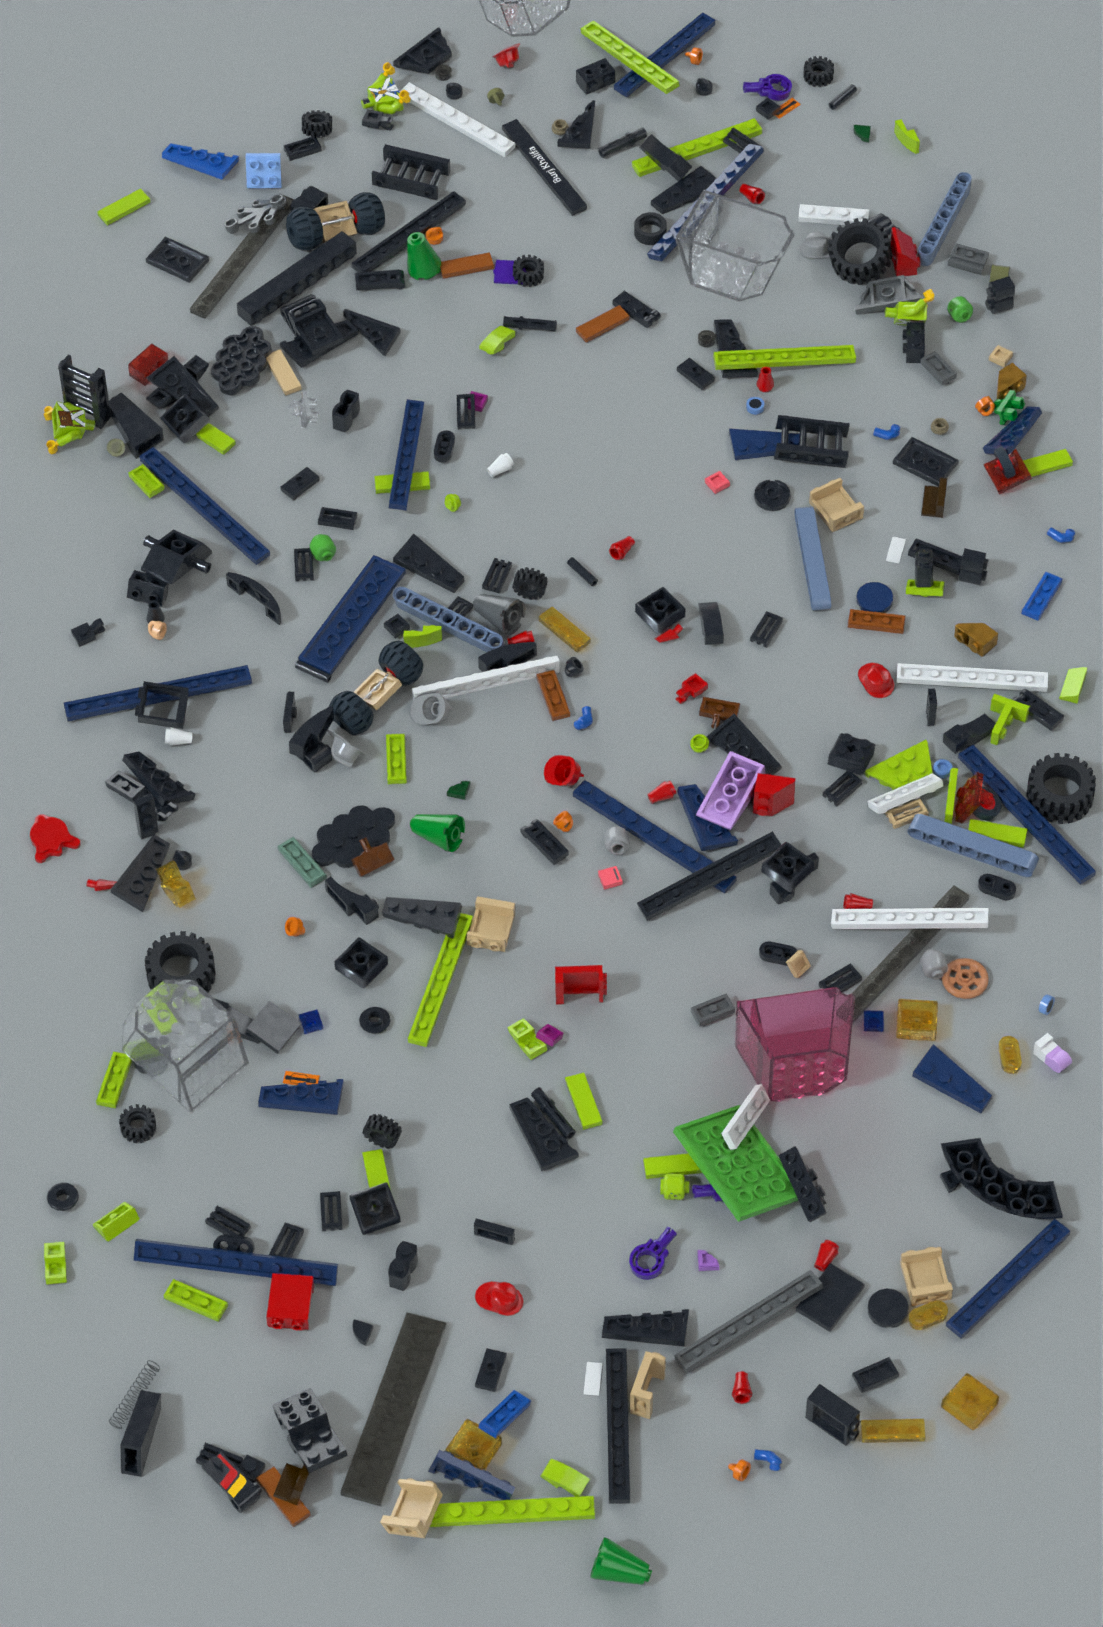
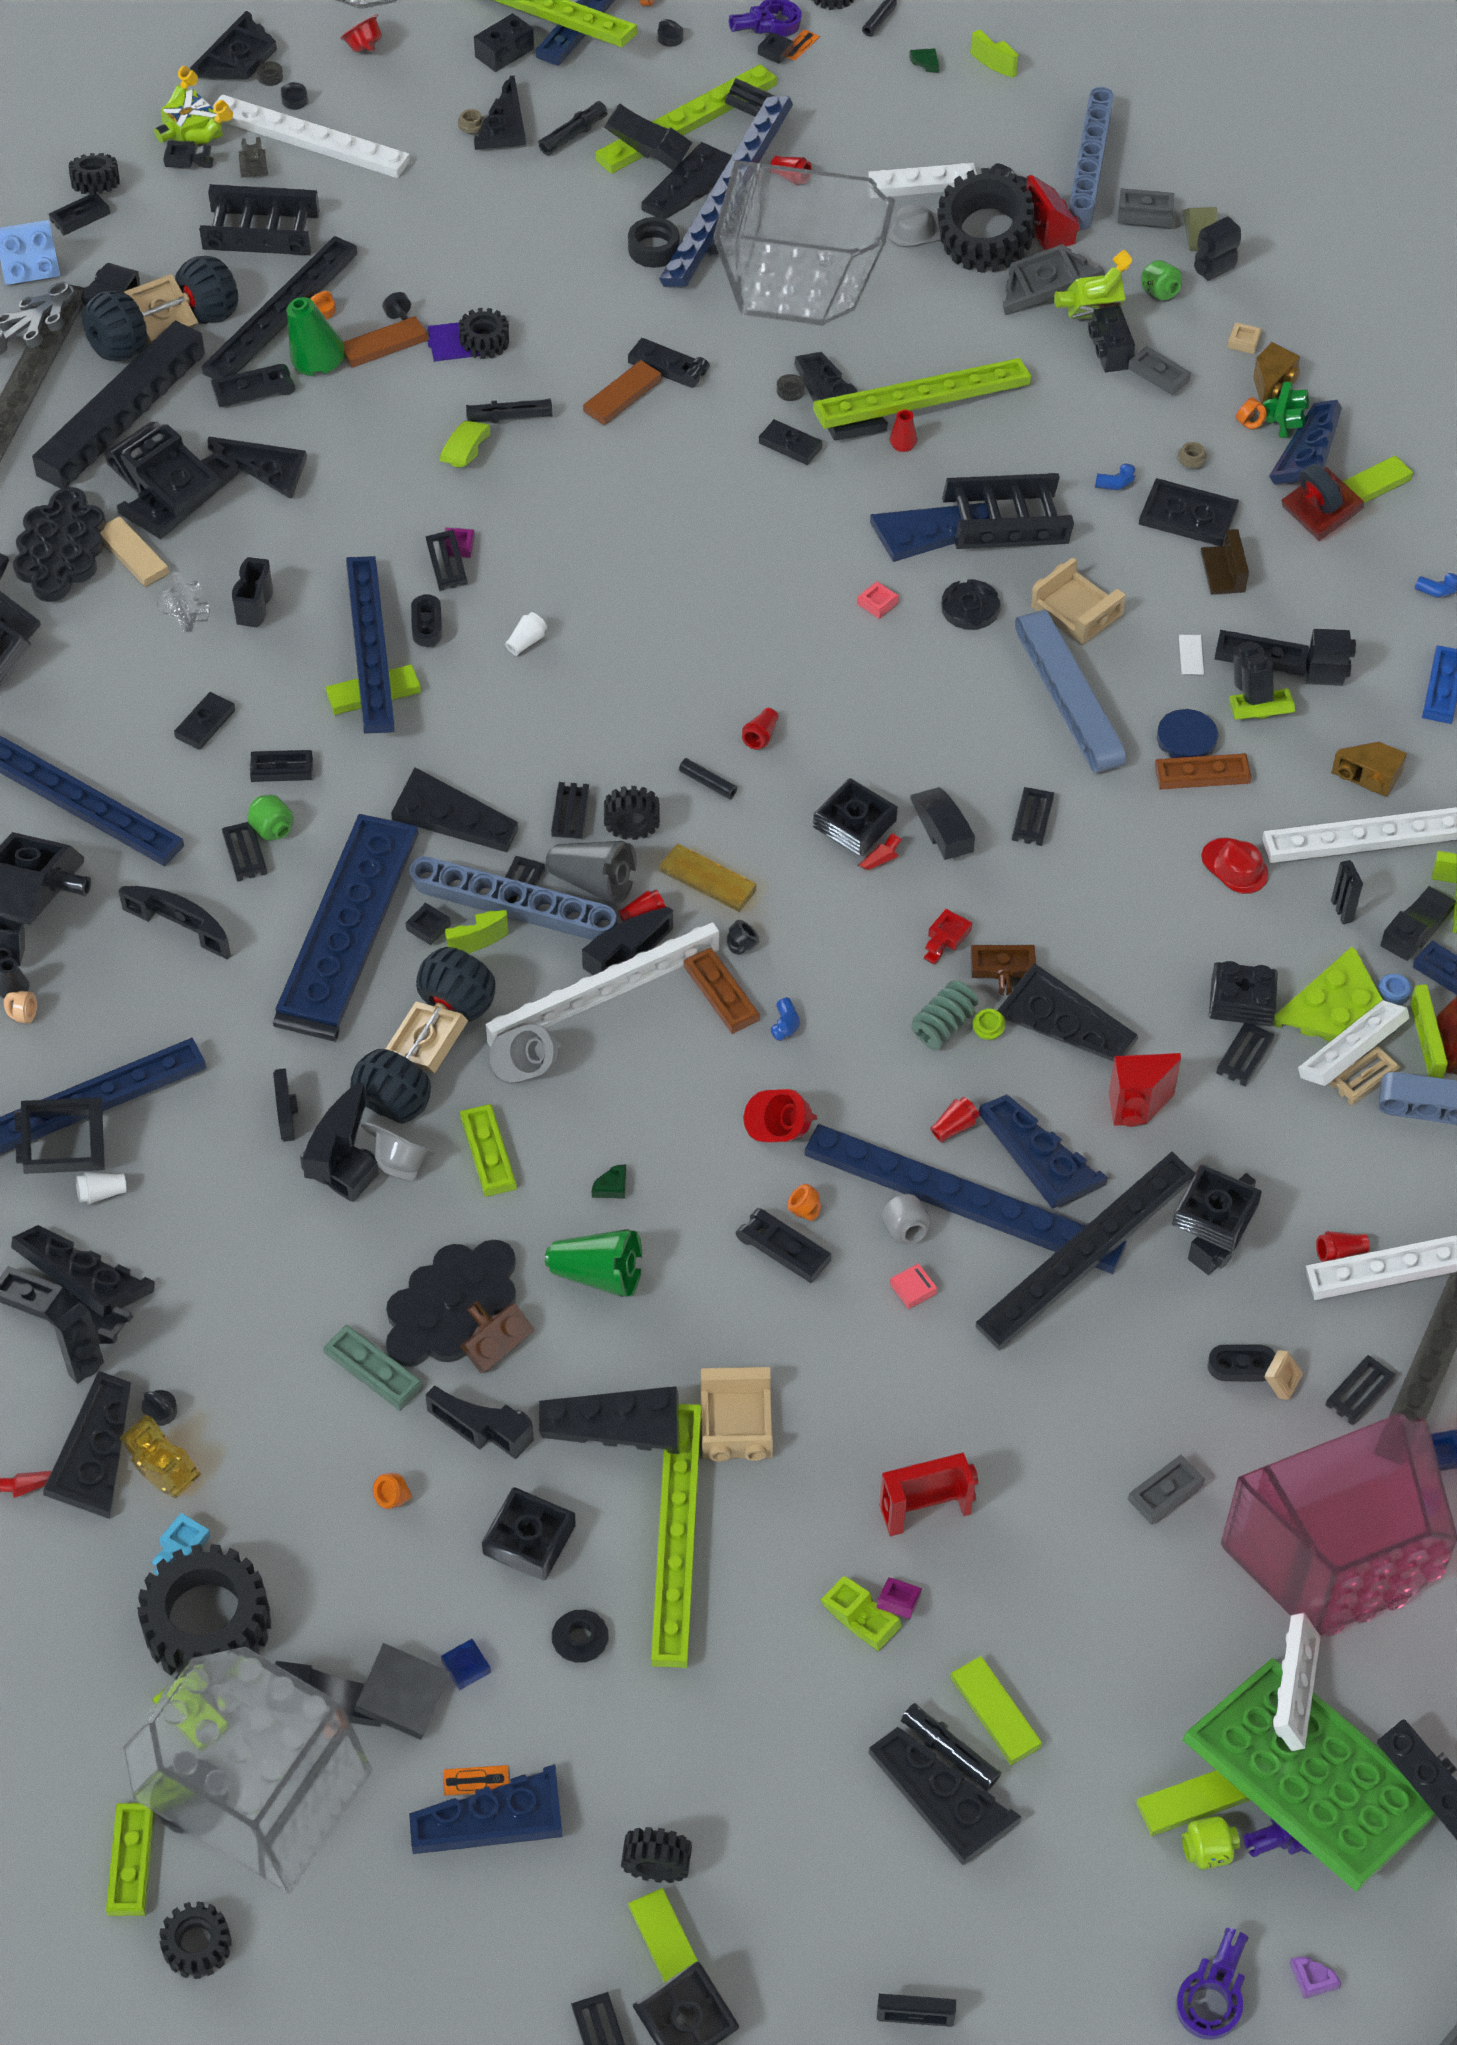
camera: 15 degrees left, 0 degrees up
(178, 925) = (181, 1535): none -> medium azure plate
(216, 438) = (47, 674): lime tile -> none
(417, 130) = (252, 159): none -> clear smoke plate
(452, 502) = (465, 705): lime plate -> none
(480, 243) = (397, 305): none -> black tile
(496, 95) = (360, 92): olive tile -> none
(544, 167) = (464, 182): black tile -> none
(673, 731) = (944, 1014): none -> sand green piece
(731, 791) = (1072, 1095): lavender slope -> none
(755, 405) = (898, 473): medium blue tile -> none

